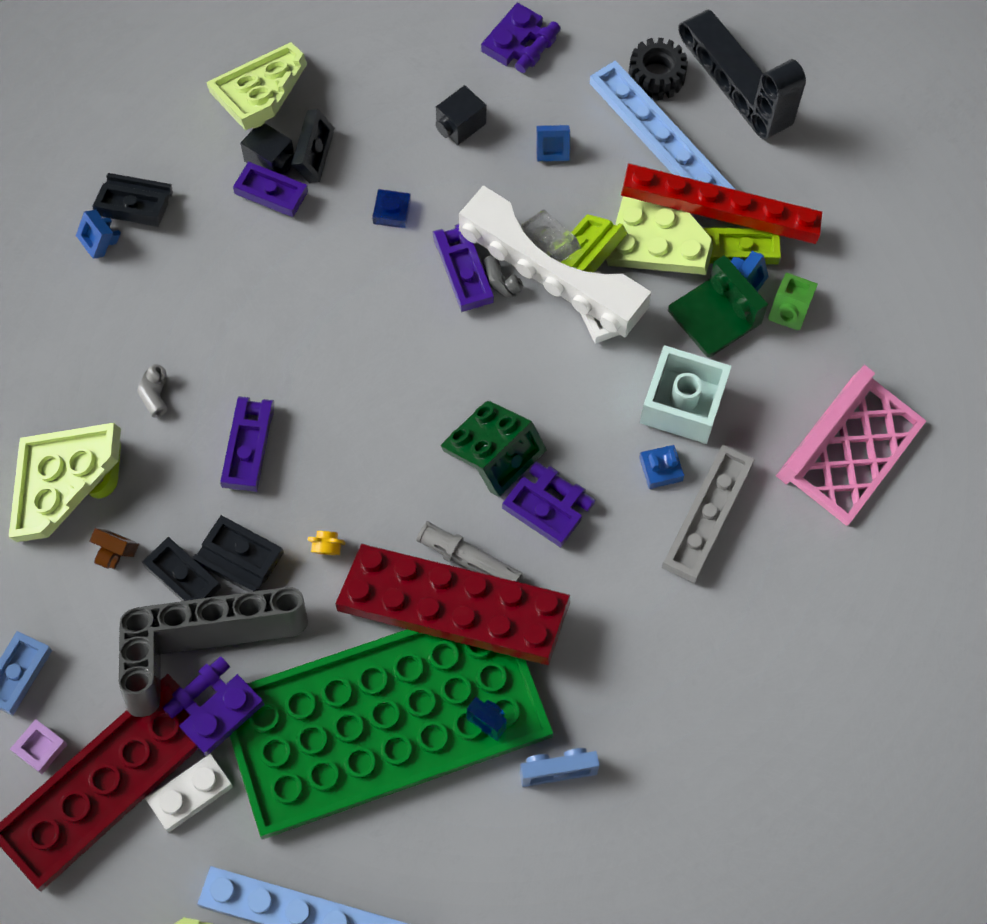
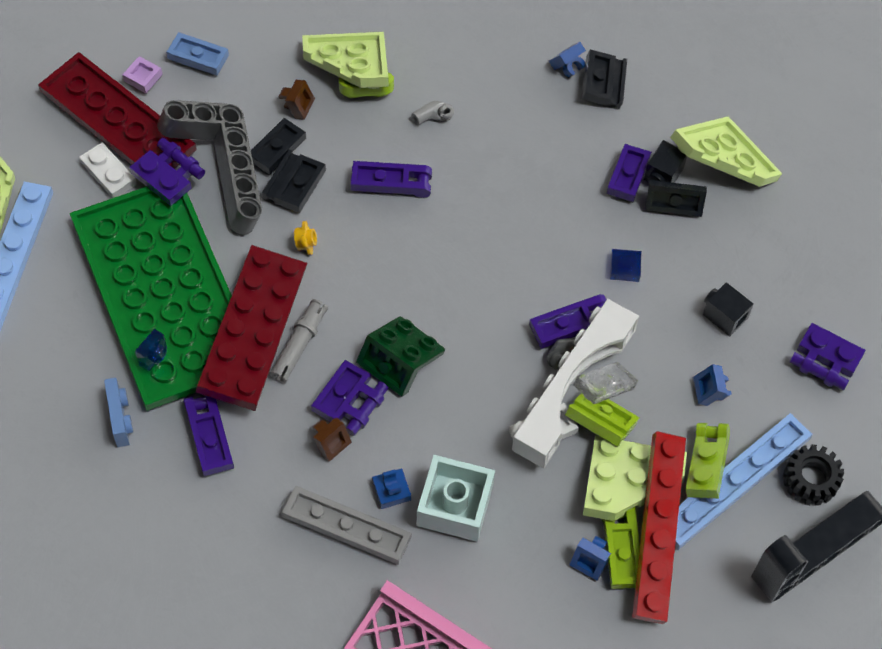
camera: 85 degrees right, 5 degrees down
(591, 662) = (209, 435): none -> dark purple plate
(601, 525) = (331, 438): none -> reddish brown tile
(642, 151) = (708, 461): none -> lime plate
(719, 309) = (549, 529): dark green bracket -> none
(792, 301) = (571, 598): bright green bracket -> none

